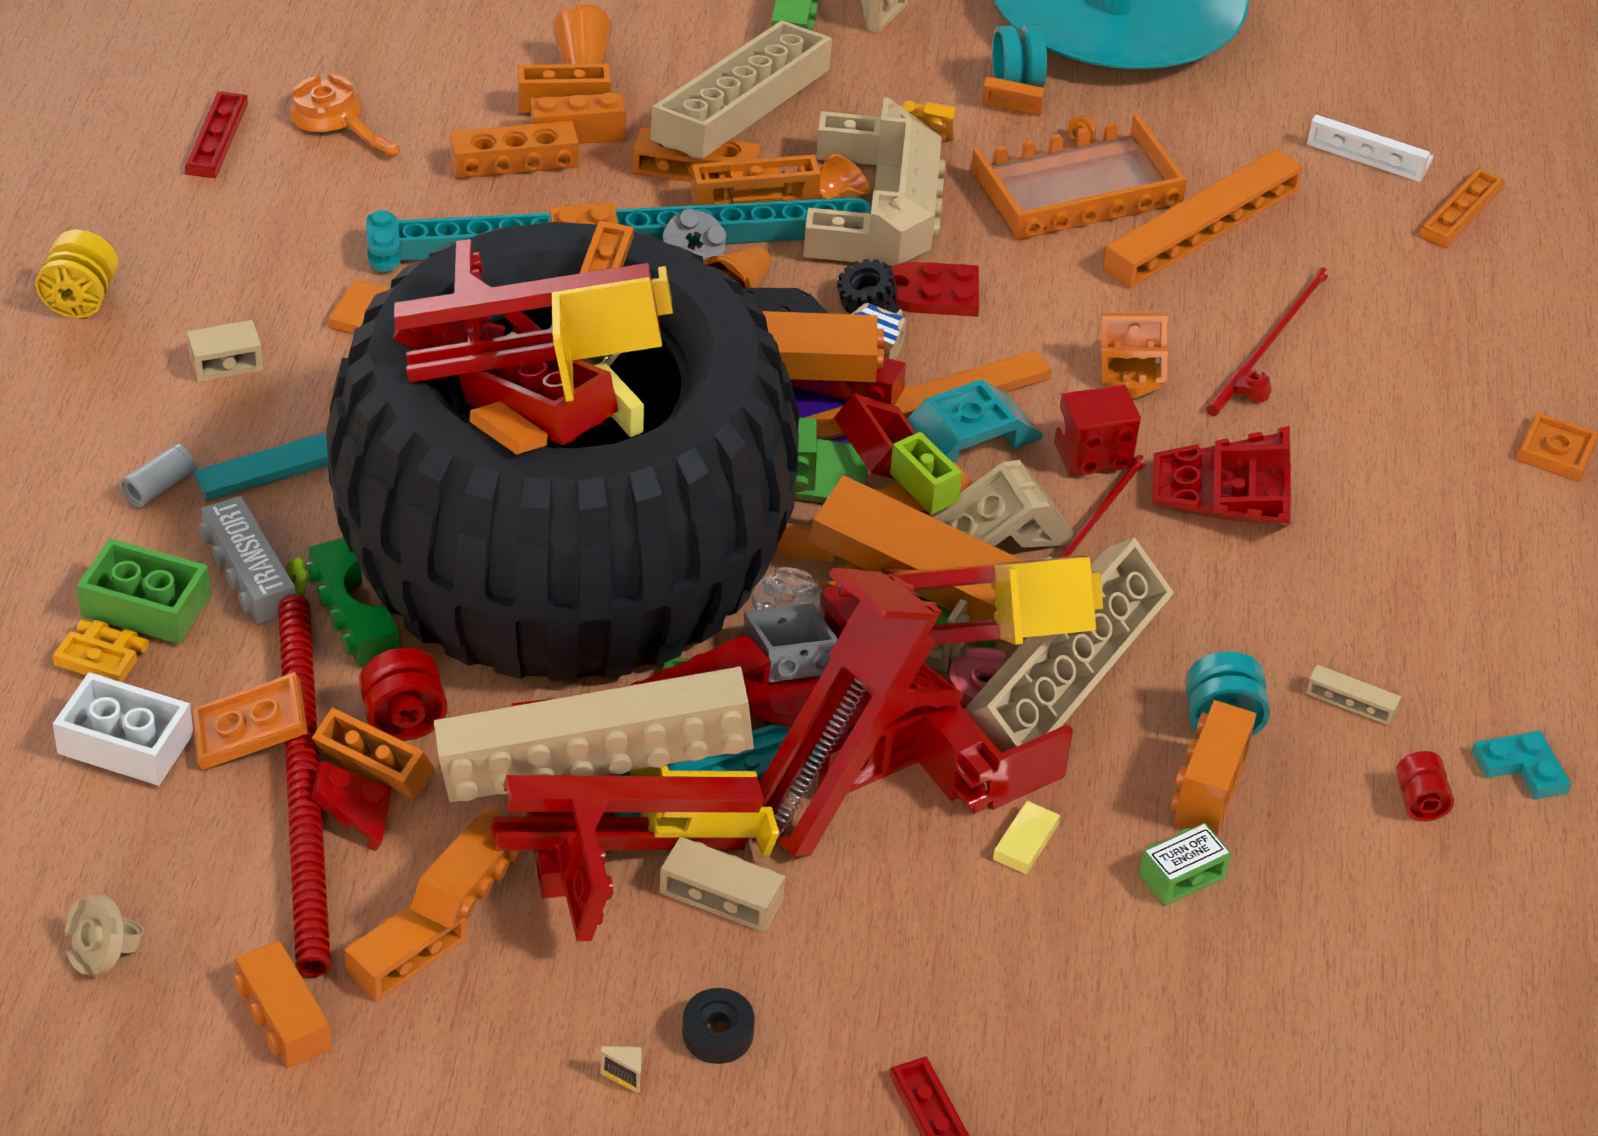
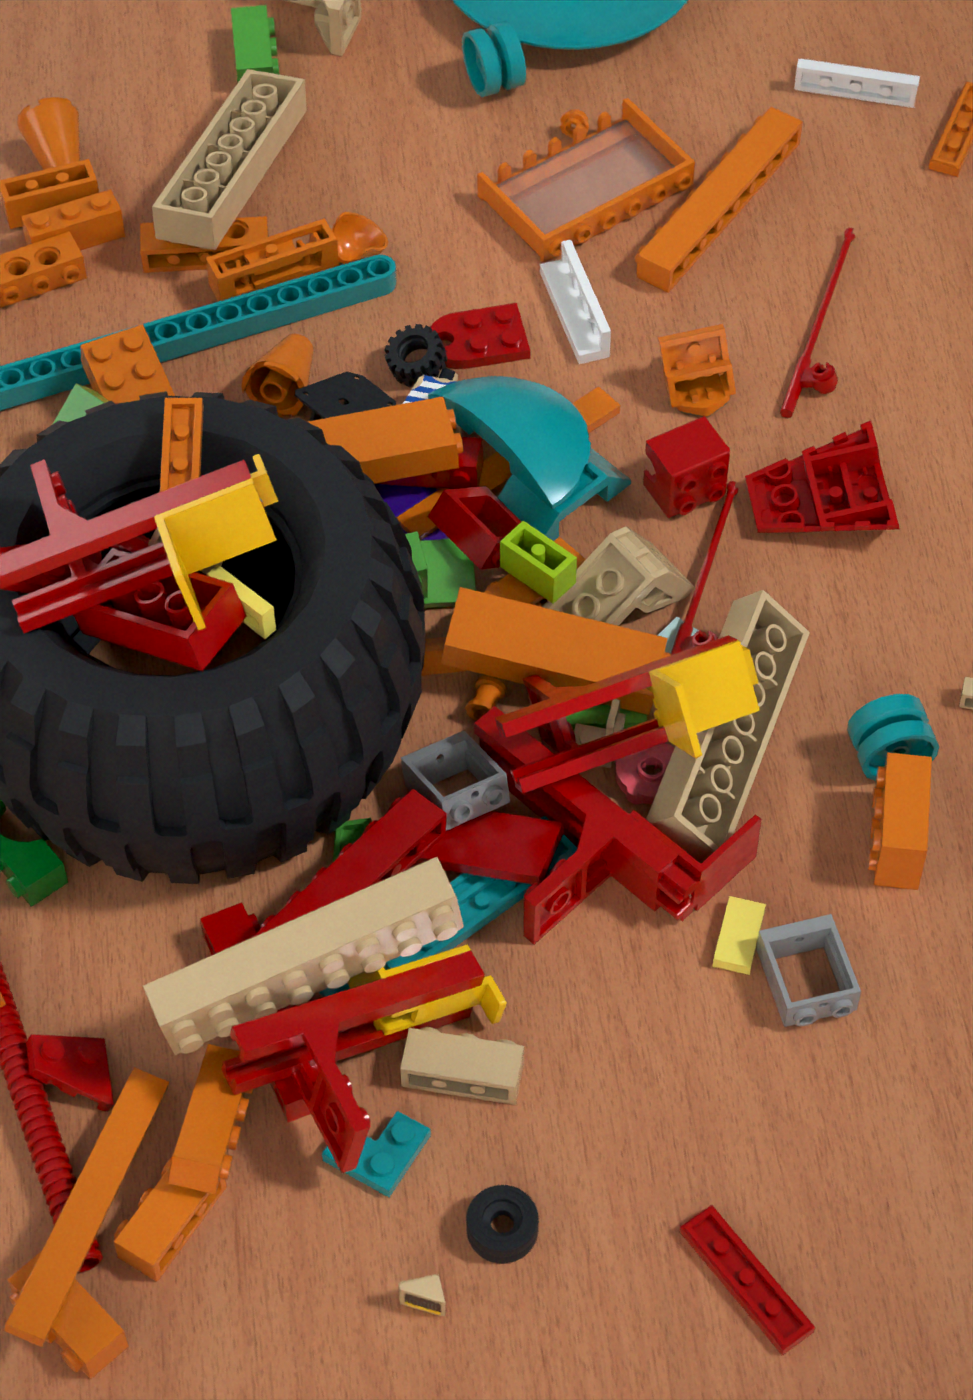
camera: 10 degrees left, 10 degrees up
(327, 916) = (86, 1208): none -> orange tile
(373, 753) = (77, 1009): orange brick -> none
(403, 693) = (89, 936): red wheel -> none
(508, 428) = (141, 663): orange tile -> none
(625, 949) = (390, 1157): none -> teal plate
(700, 224) = (213, 351): light grey plate -> none
(786, 581) = (435, 707): clear plate -> none
(885, 656) = (573, 803): red piece -> none
(903, 193) = (420, 233): tan wedge -> none
(936, 116) = (431, 149): light orange plate -> none
(956, 363) = (528, 426): none -> teal brick
(1013, 95) = (497, 100): orange tile -> none
(1035, 280) = (577, 306): none -> white fence
(1100, 850) = (800, 938): none -> light grey window
(1184, 863) = (898, 928): brick -> none

